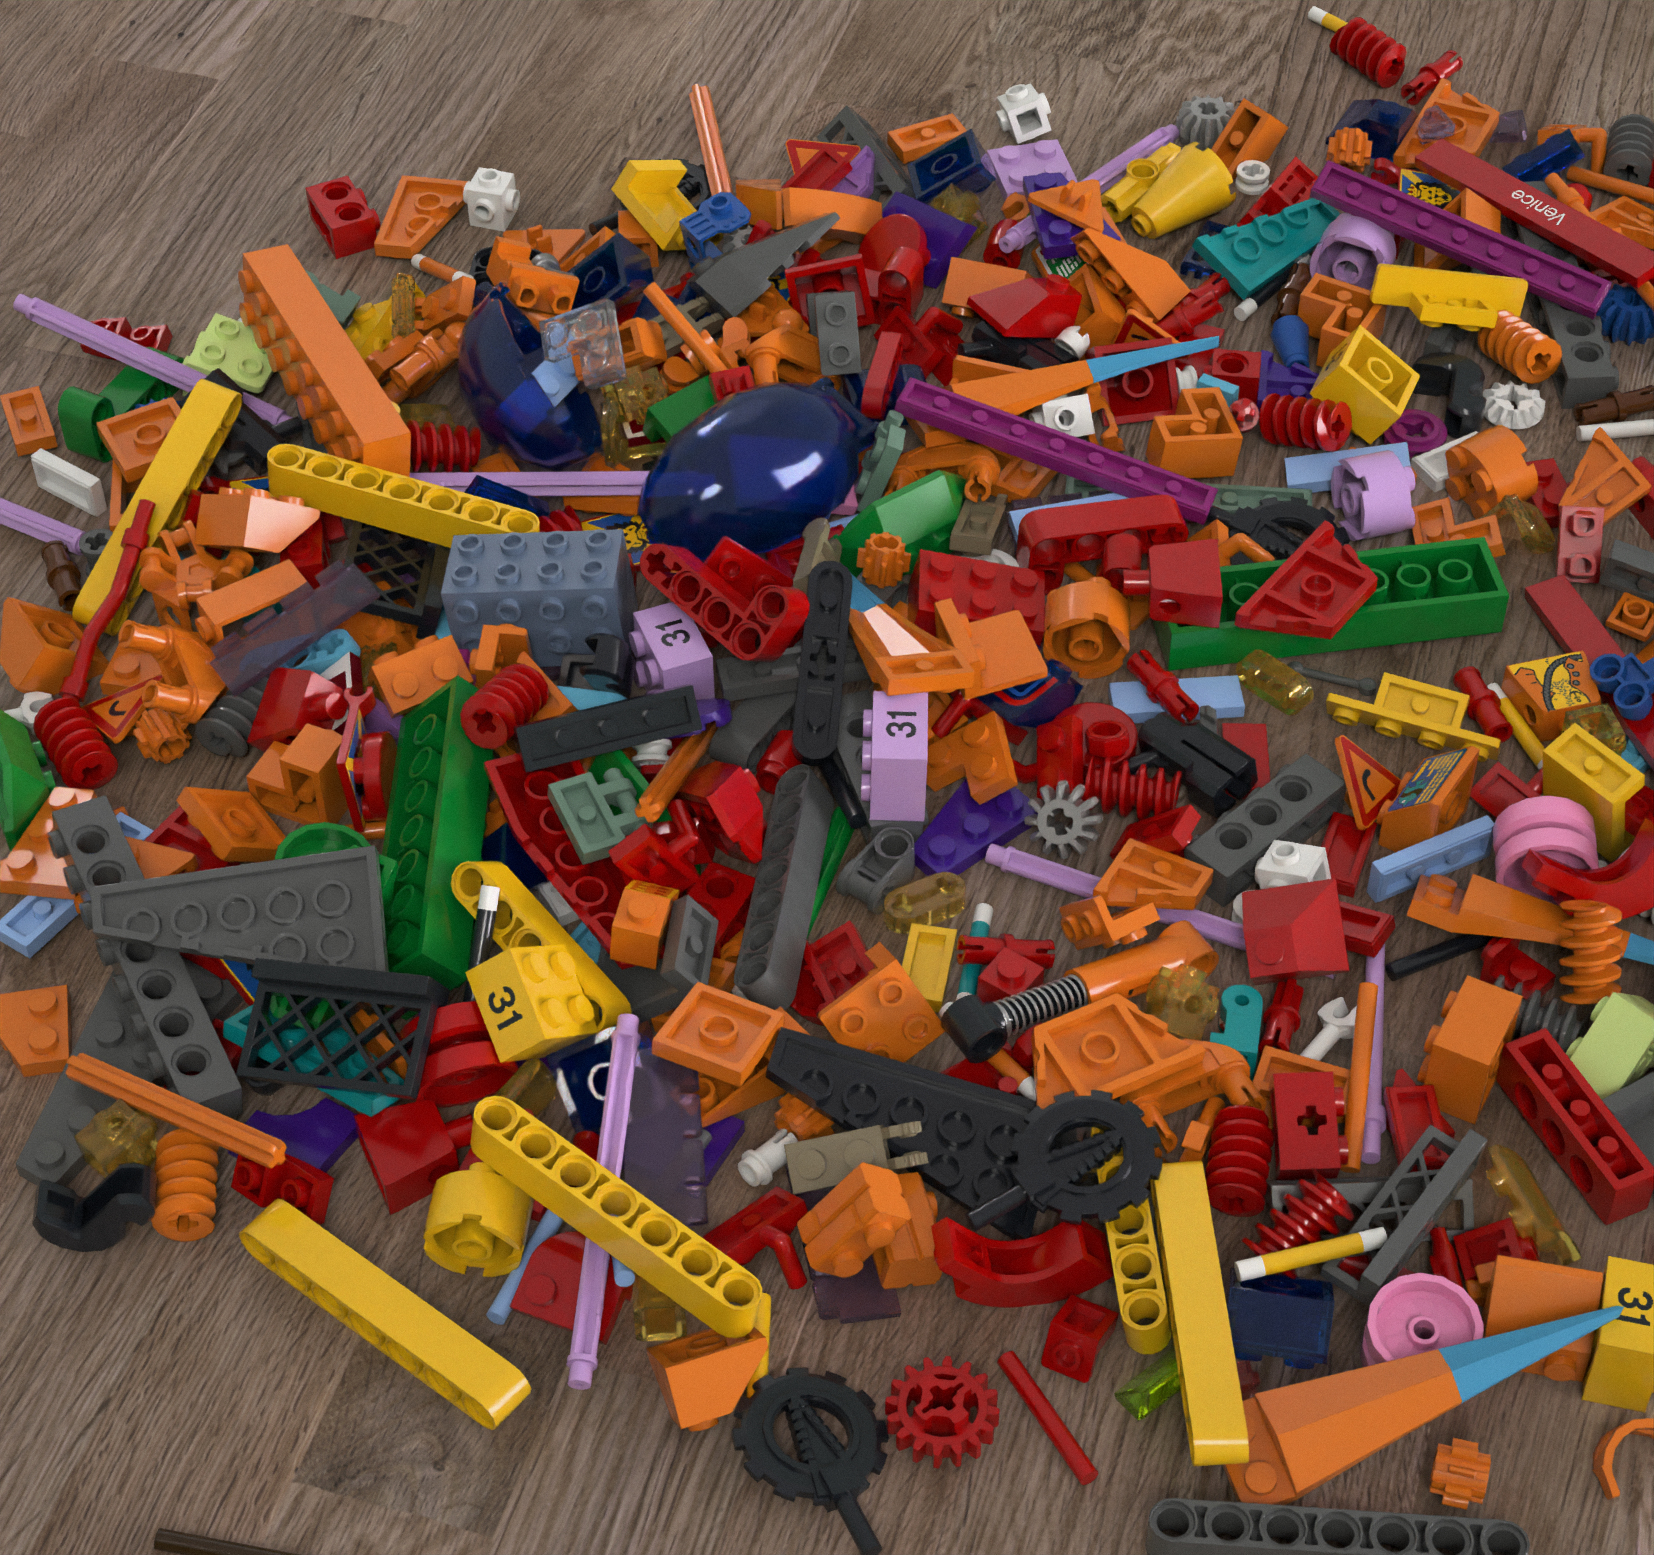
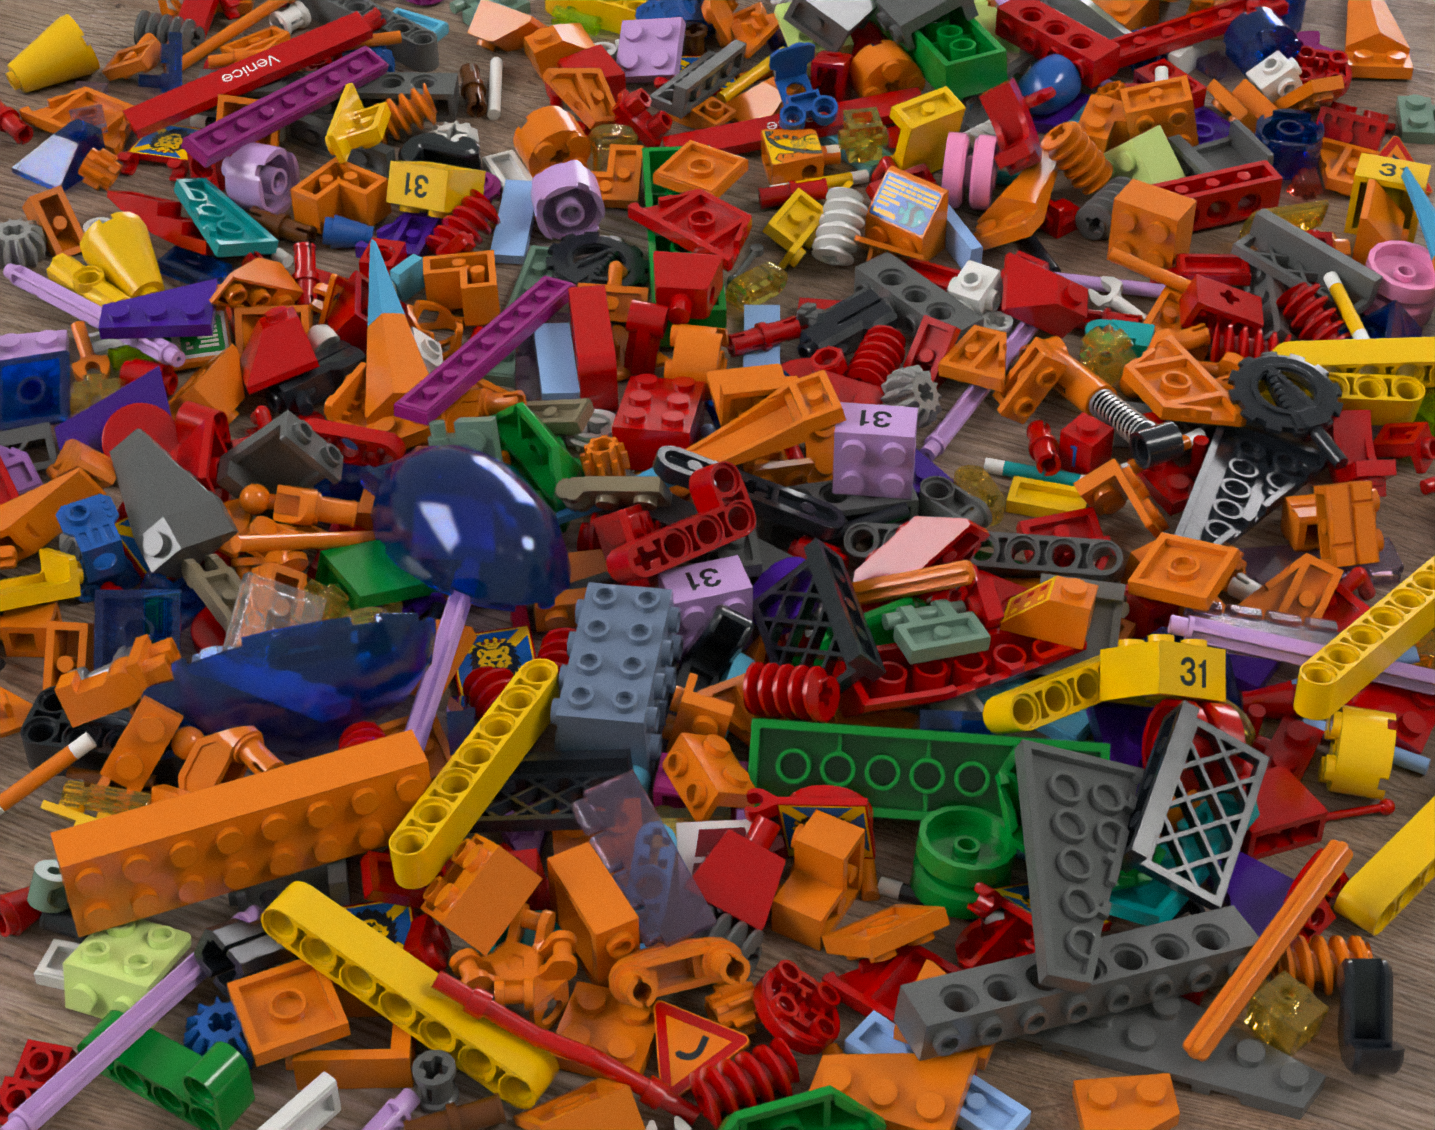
camera: 85 degrees left, 5 degrees down
(151, 772) = (797, 1008): none -> red tile
(418, 1208) = (1385, 807): none -> red hinge
(482, 932) = (1091, 723): black bar -> none
(730, 381) = (357, 530): red tile -> none
(739, 1175) = (1299, 589): none -> orange wing
(830, 1158) = (1278, 520): dark tan hinge -> none
(1074, 202) = (161, 296): orange piece -> none
(1141, 406) = (444, 319): none -> orange helmet
(1394, 737) = (839, 226): none -> white piece
(1426, 582) = (700, 167): none -> orange plate
(1548, 81) = (53, 58): none -> yellow cone

